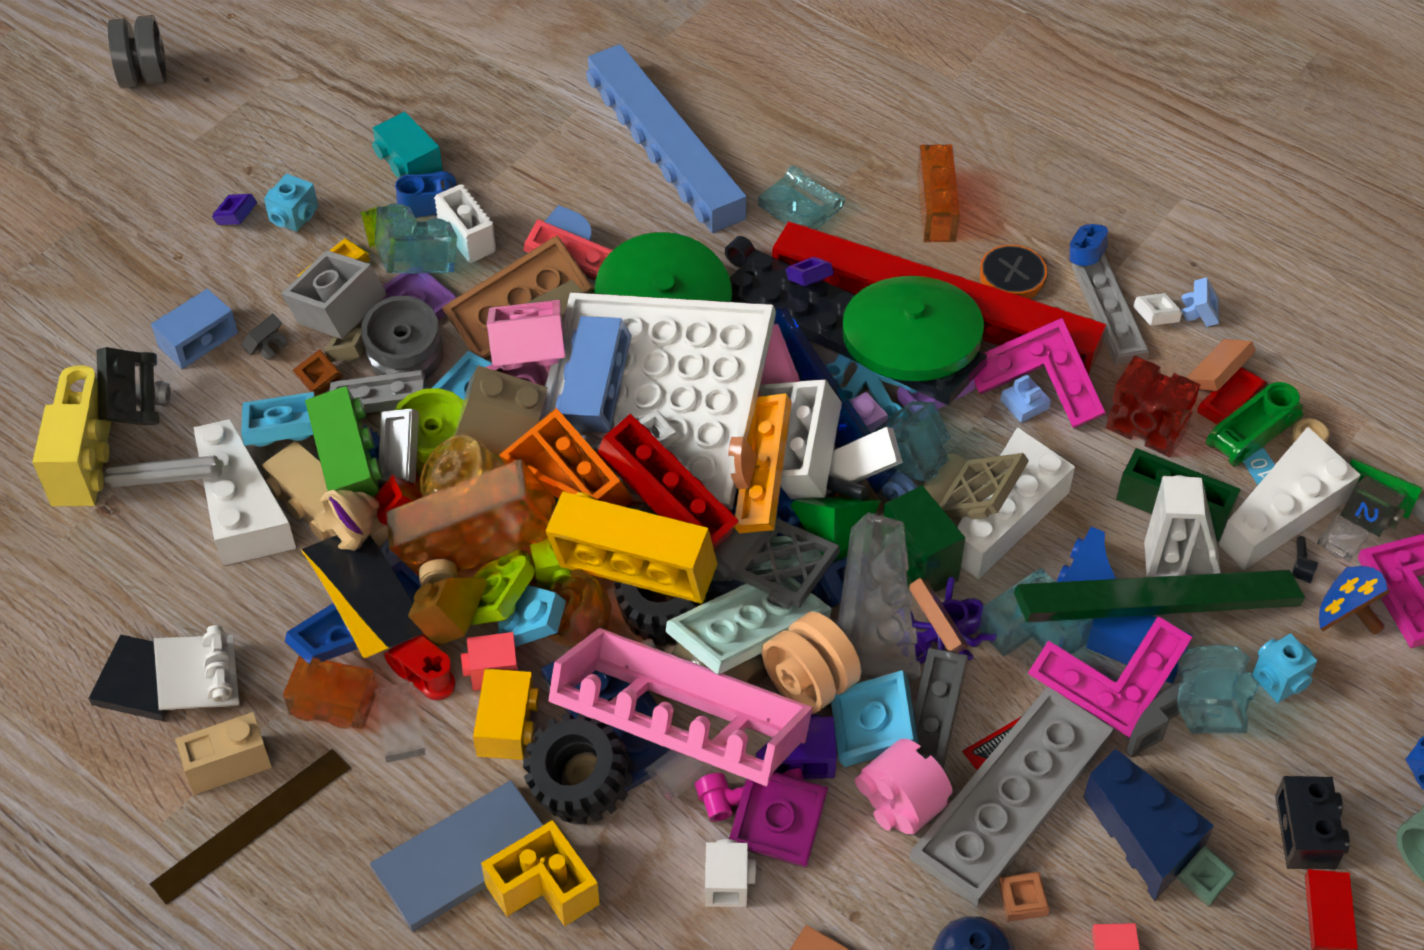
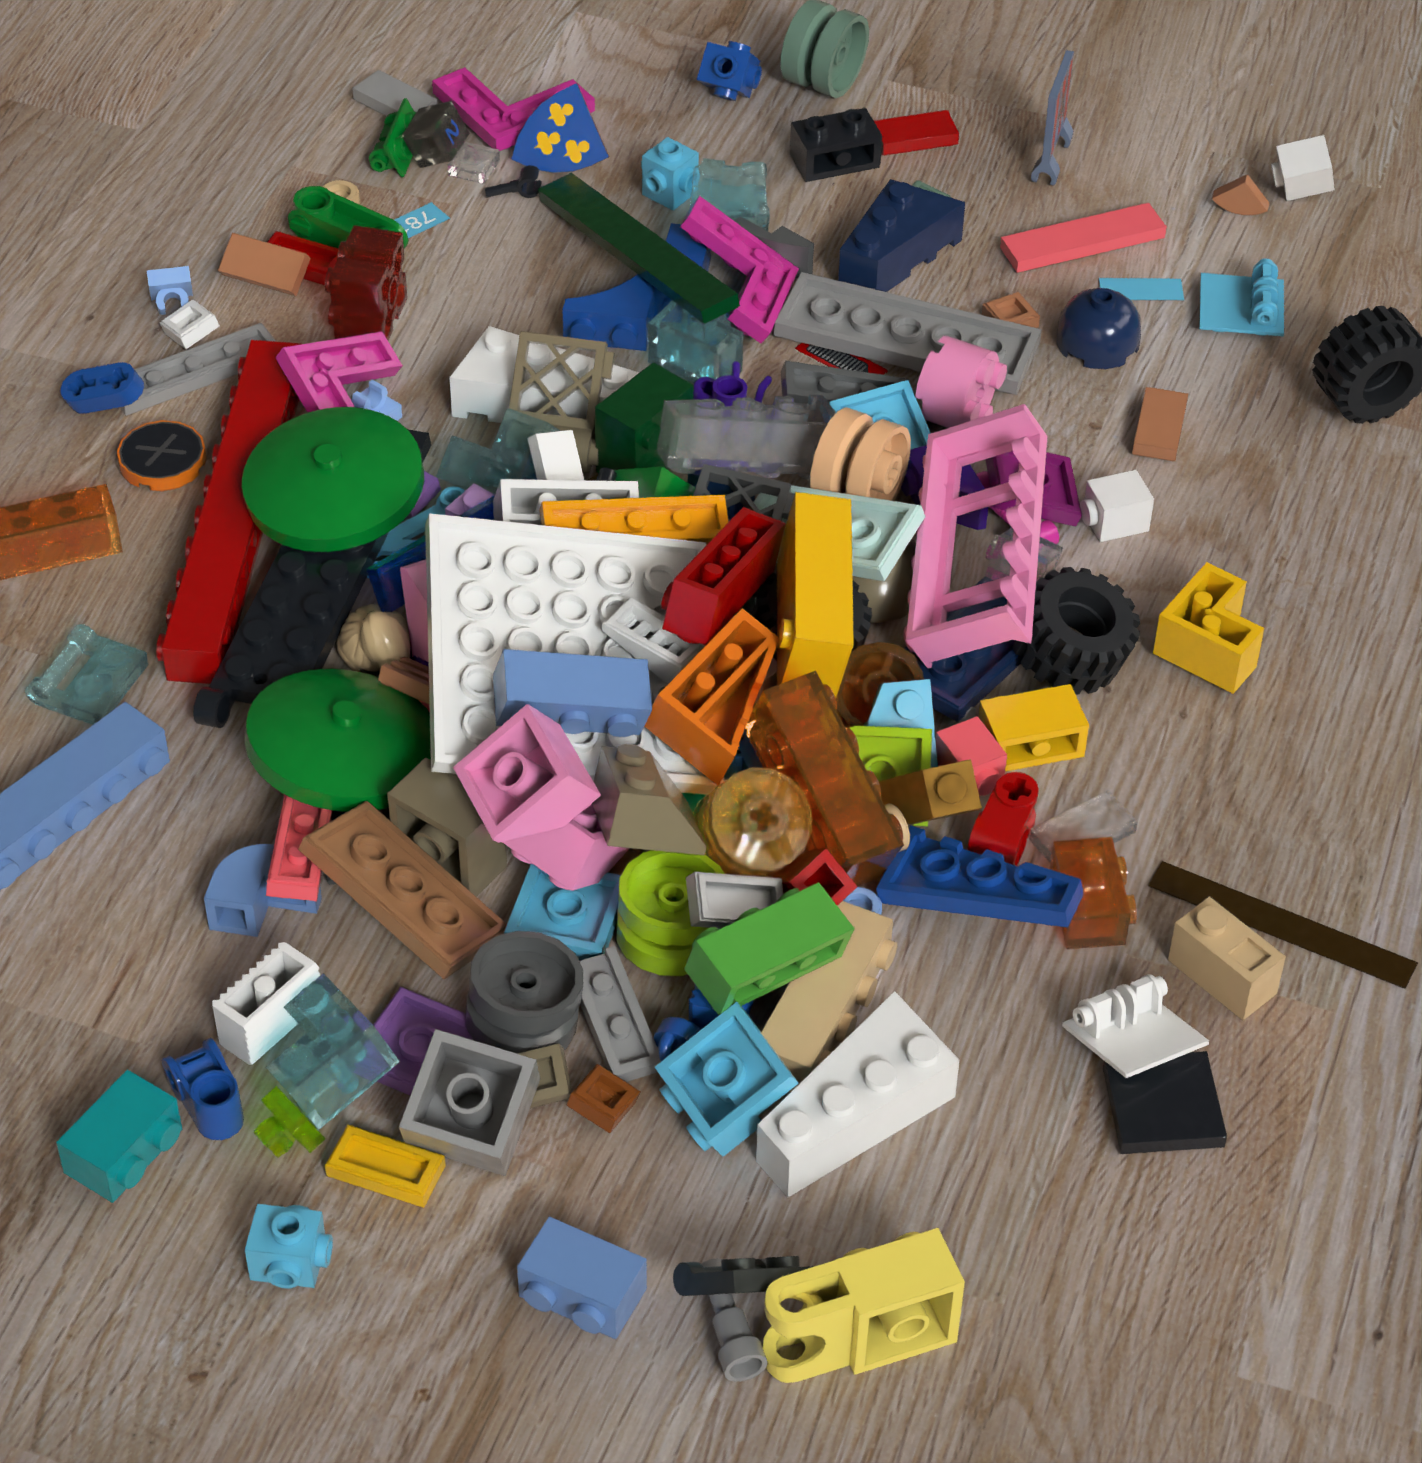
camera: 110 degrees left, 5 degrees down
(164, 471) = (872, 1156): light grey axle -> none
(234, 209) = (310, 1337): dark purple tile -> none
(264, 334) = (562, 1186): dark grey tile -> none
(348, 515) = (877, 902): tan hair -> none
(364, 593) = (947, 886): black sticker -> none
(445, 861) = (1212, 722): sand blue tile -> none
(744, 462) = (656, 522): nougat tile -> none
(809, 271) = (263, 594): dark purple tile -> none
(938, 616) = (755, 378): nougat tile -> none
(1143, 479) = (482, 262): dark green brick -> none
(1181, 531) = (552, 235): white wedge -> none
(1290, 498) = (453, 190): white wedge -> none

